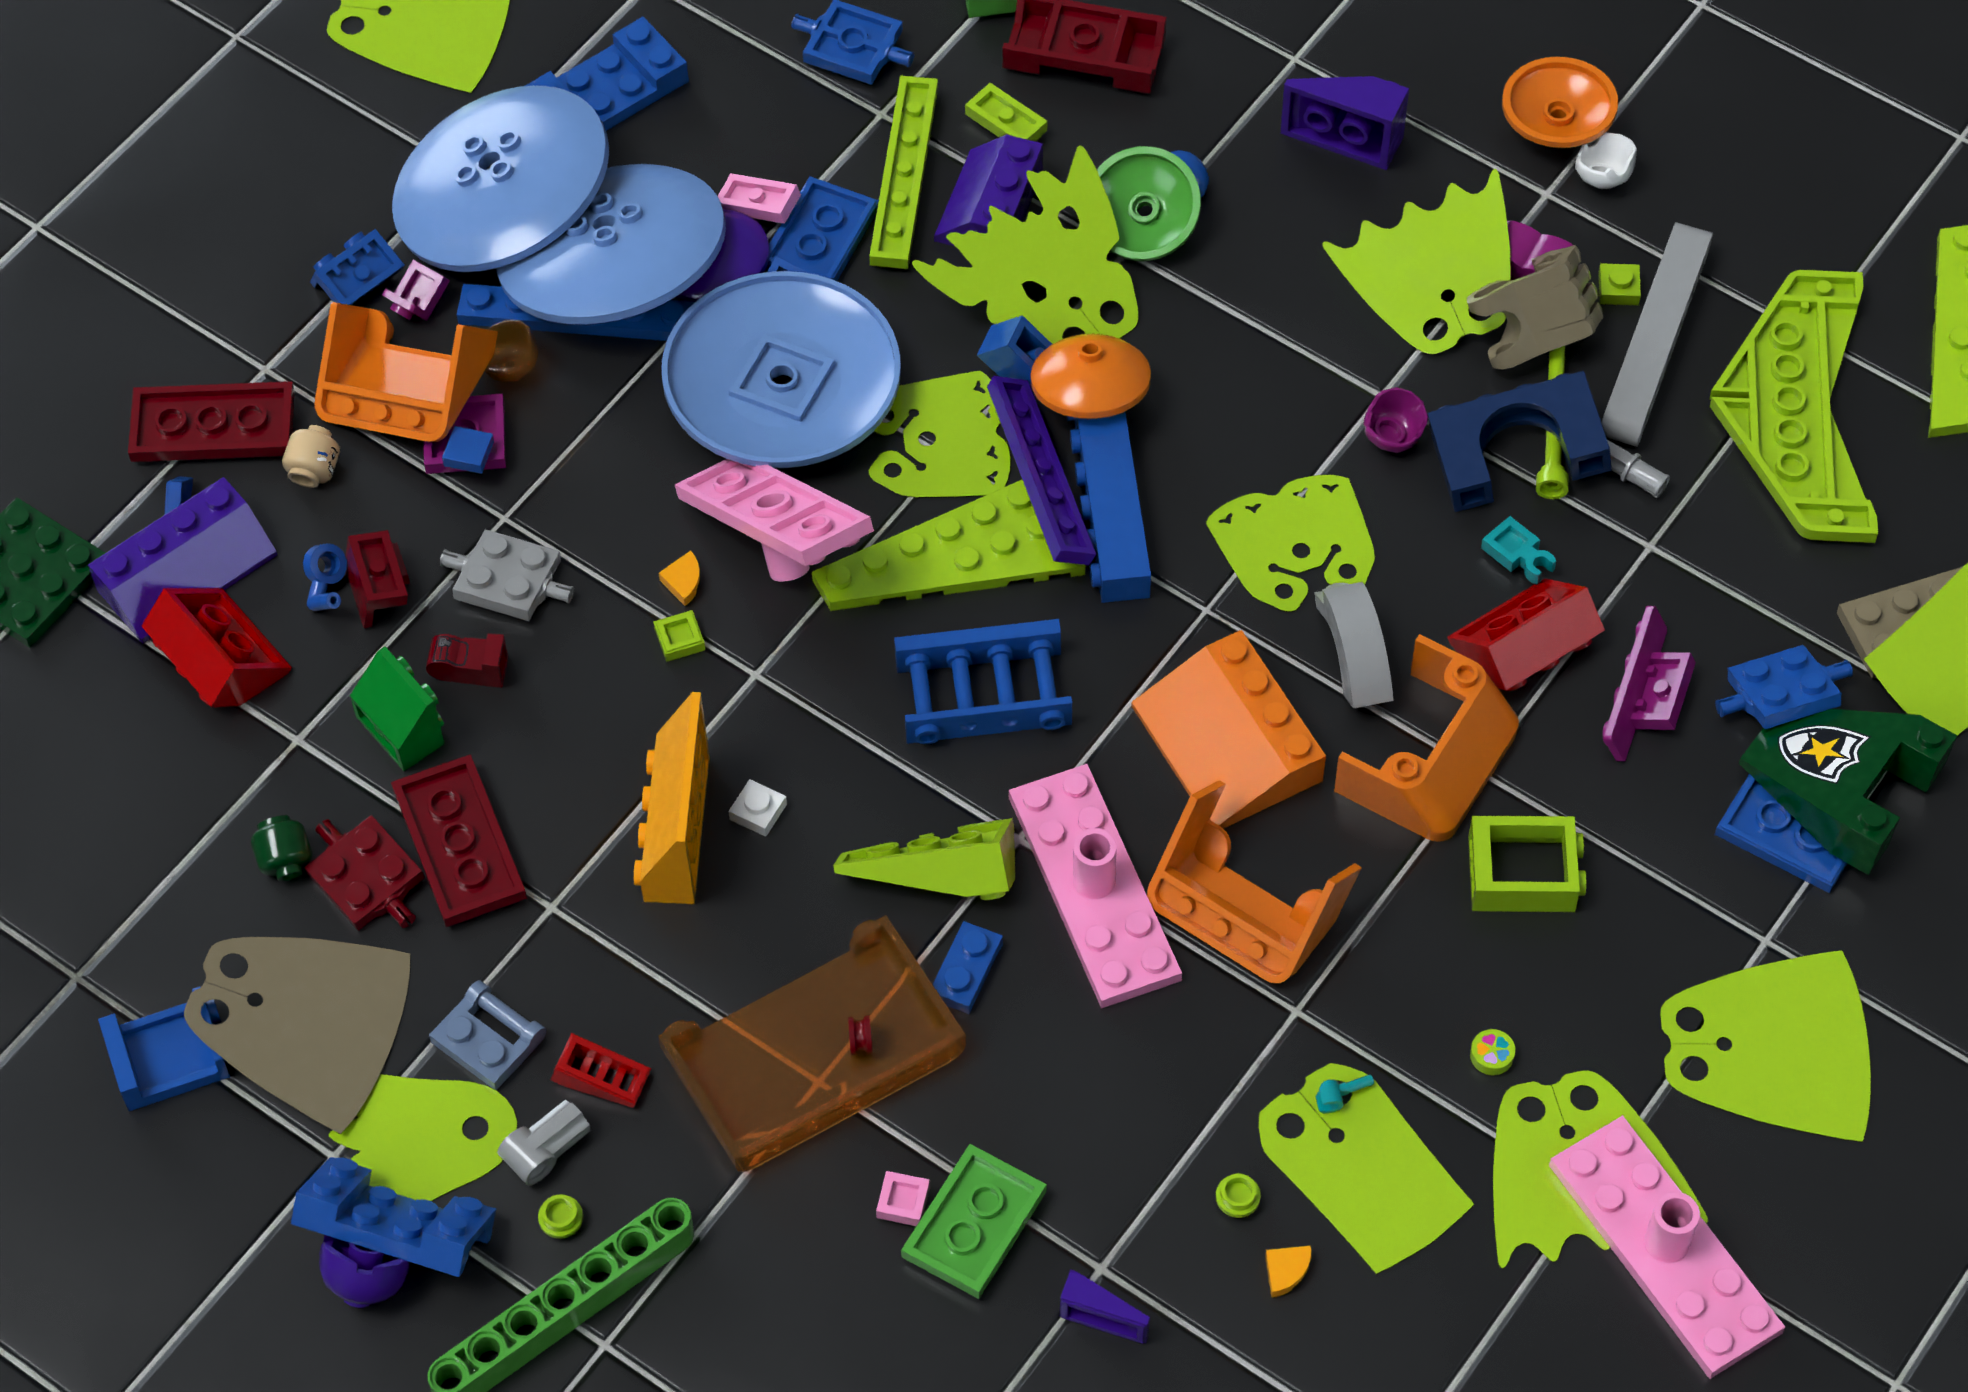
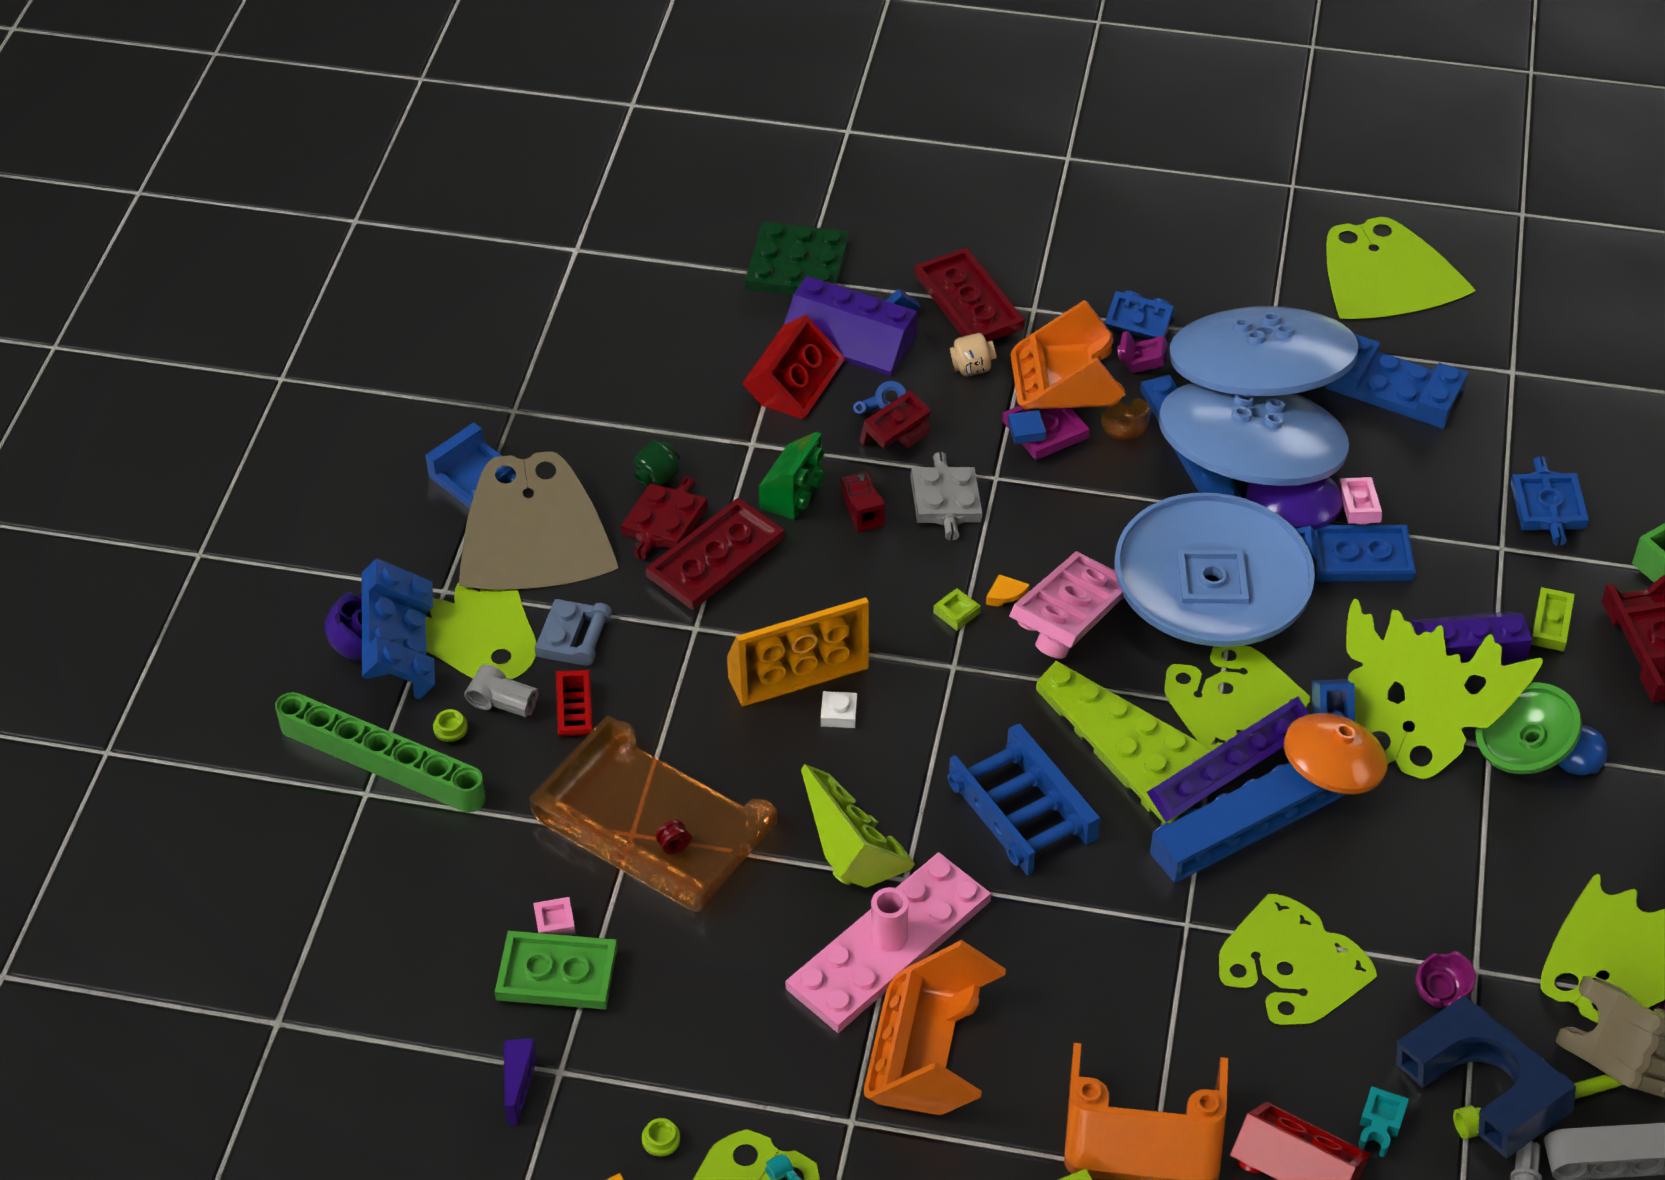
camera: 65 degrees right, 10 degrees down
(903, 172) = (1453, 577): lime plate -> none
(967, 966) = (772, 886): blue plate -> none
(1231, 724) = (1076, 978): orange slope -> none
(1358, 643) = (1203, 1023): light grey arch -> none

